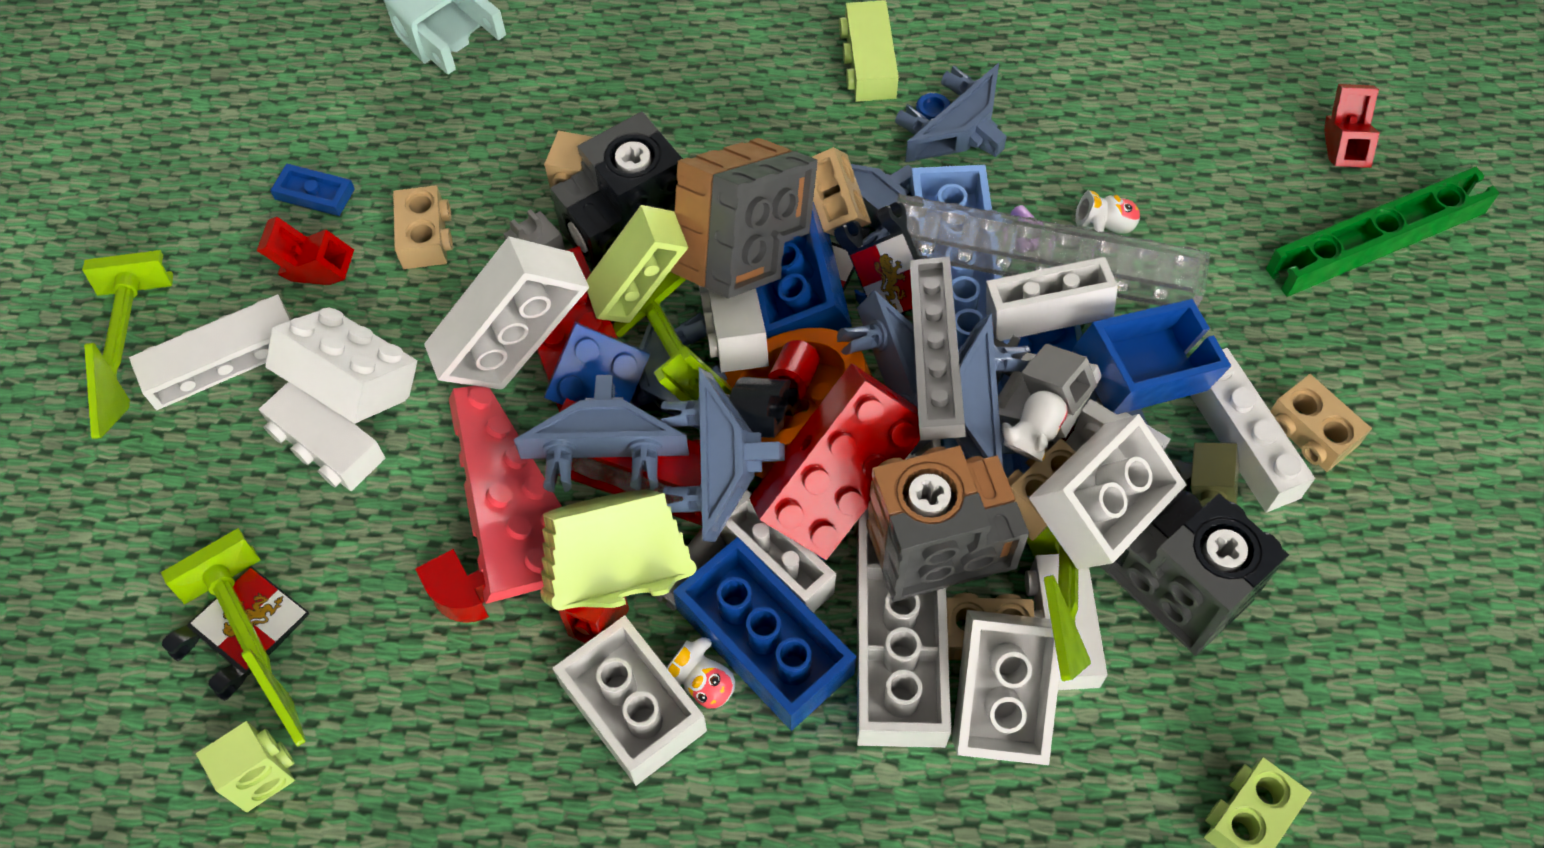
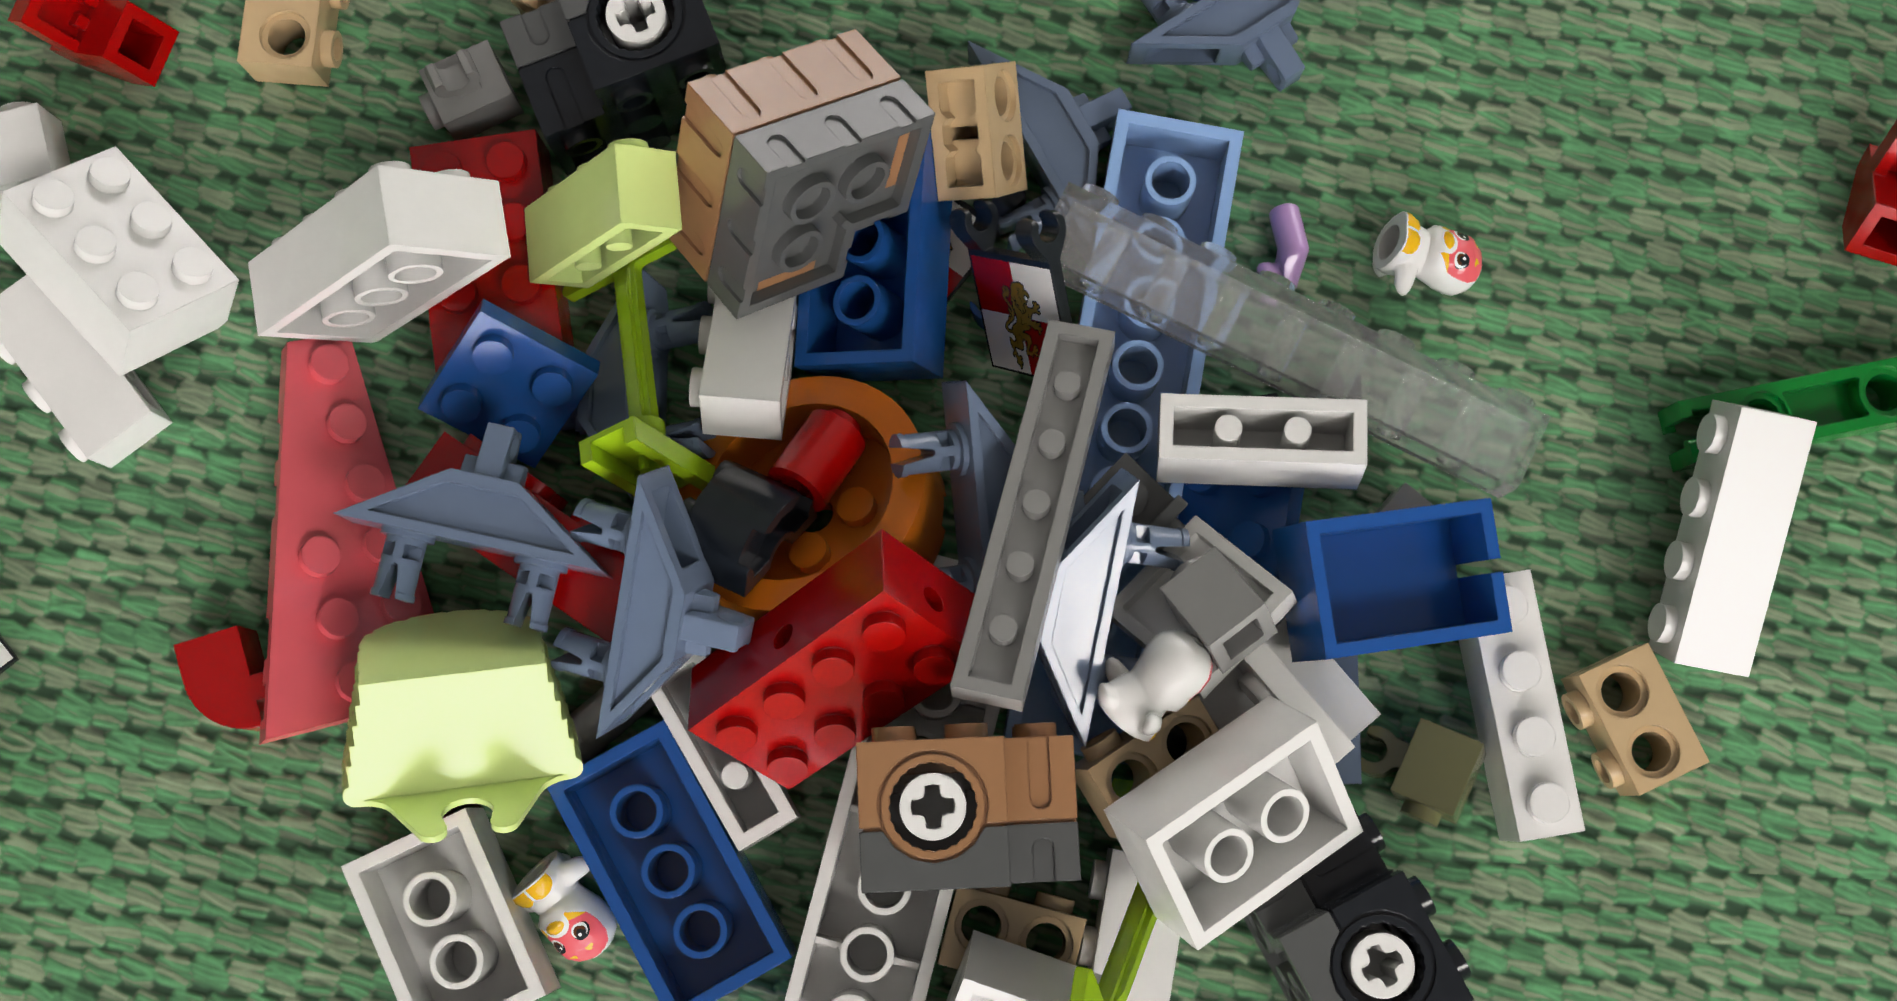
camera: 10 degrees right, 20 degrees up
(1334, 307) = (1730, 537): none -> white brick

